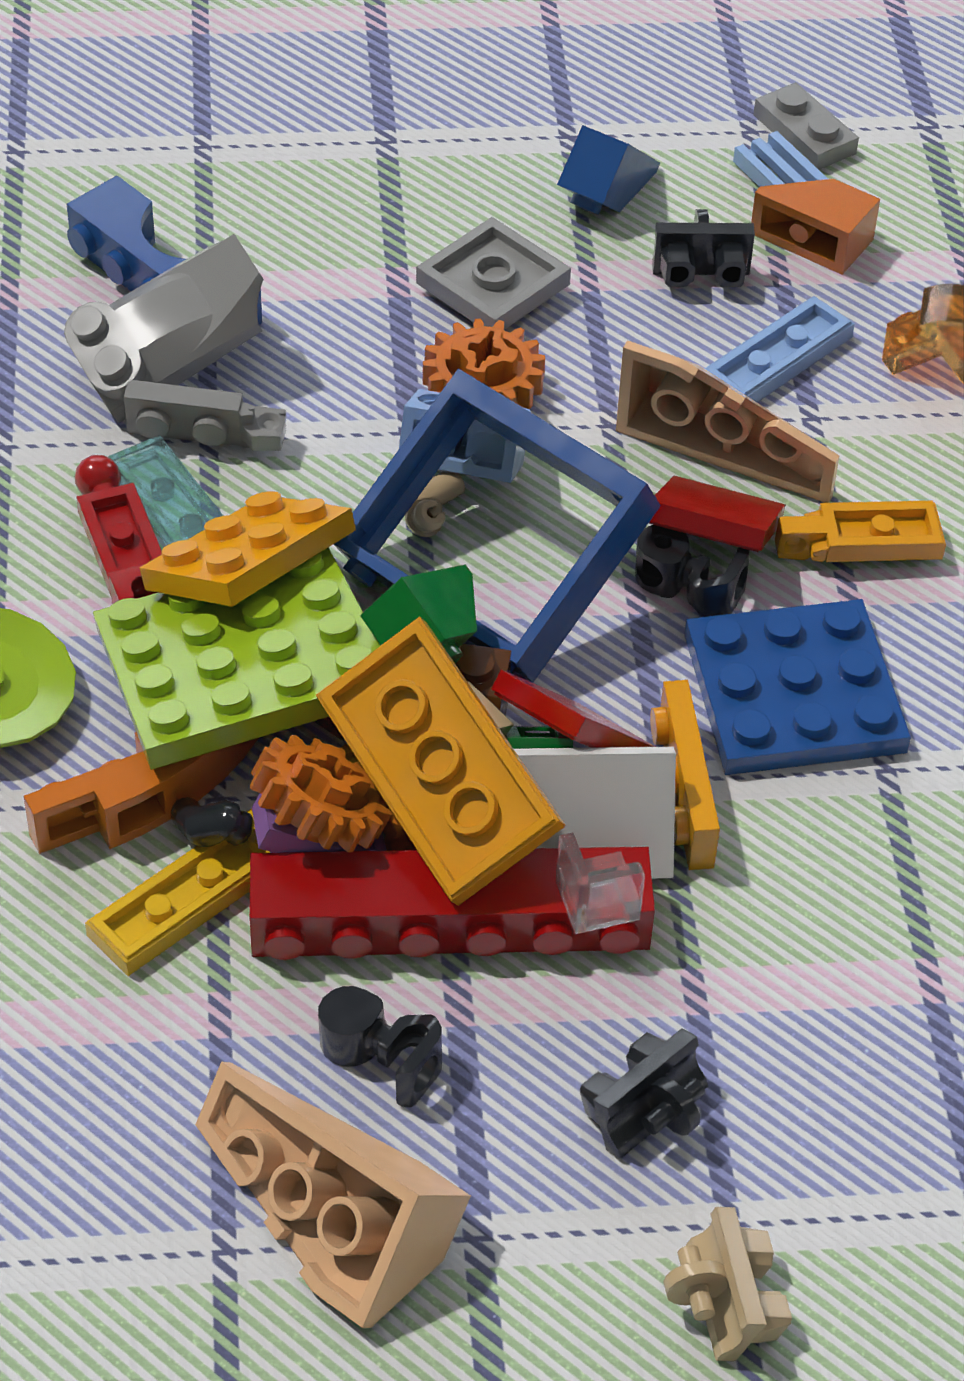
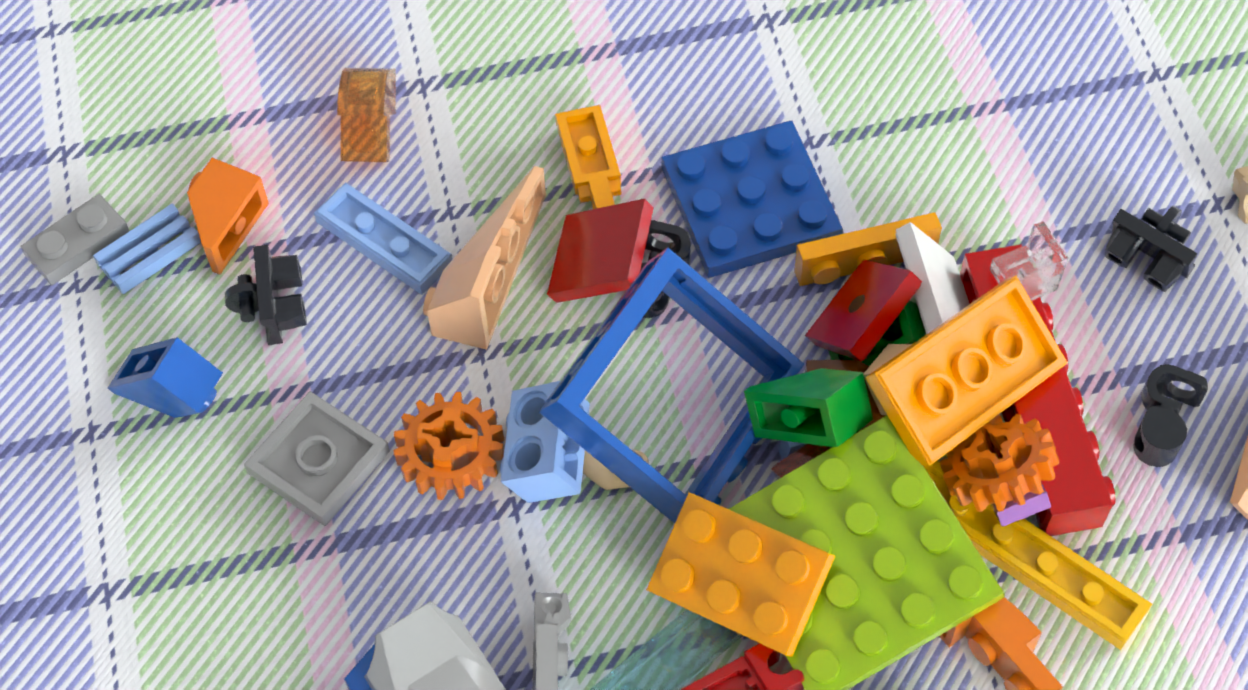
camera: 95 degrees left, 10 degrees up
(212, 822) = (1016, 559): black arm -> none

